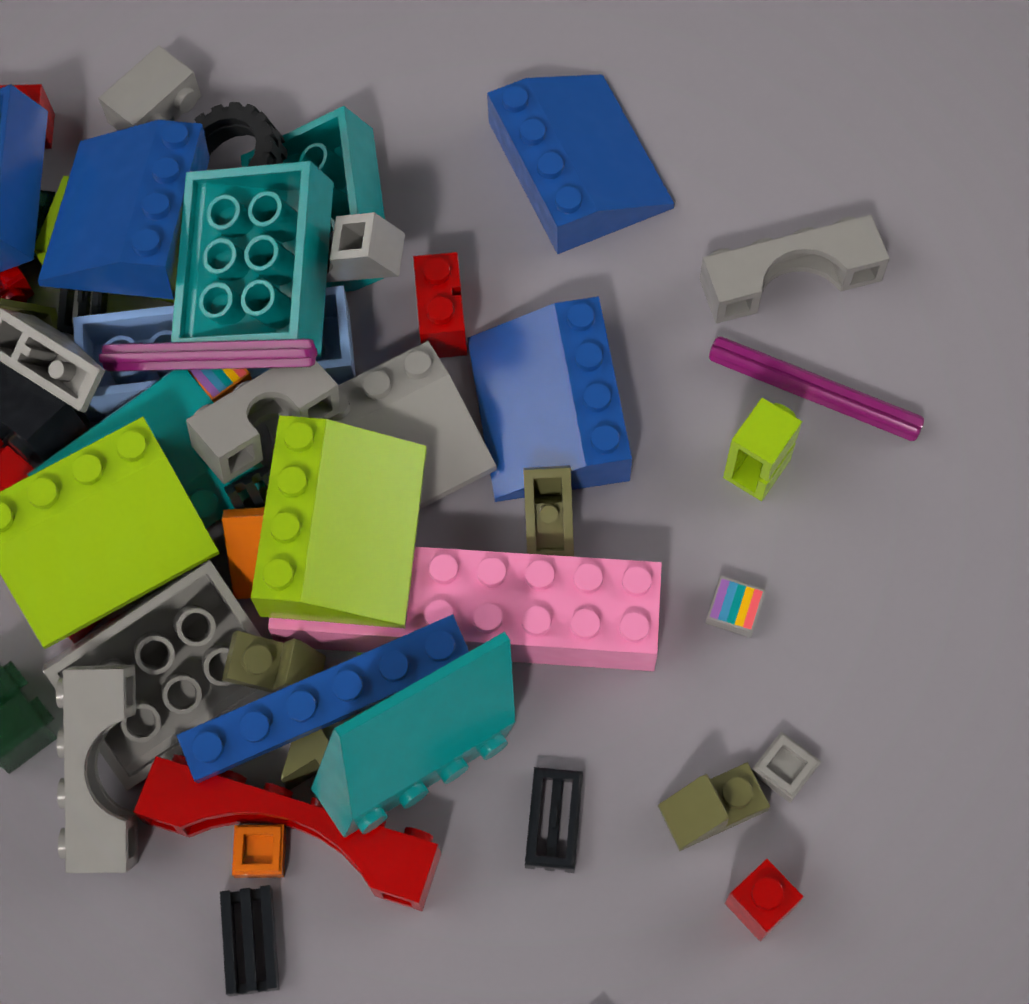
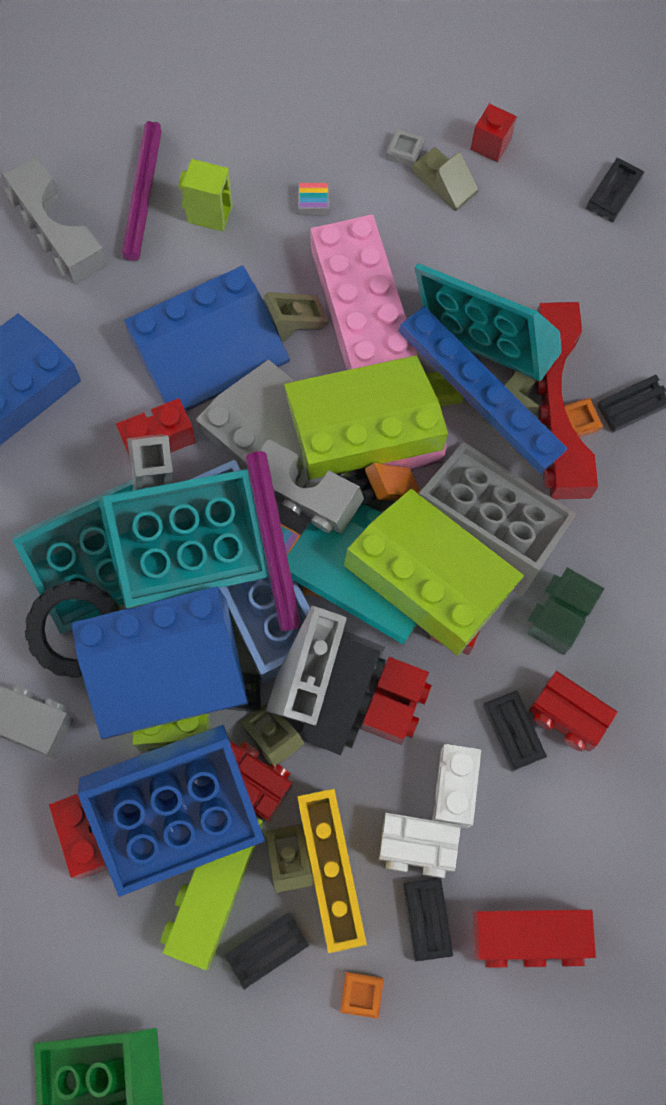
camera: 115 degrees left, 5 degrees up
(97, 830) = (548, 523): light grey arch -> none
(270, 663) = (466, 444): olive slope -> none
(550, 861) = (490, 265): black tile -> none

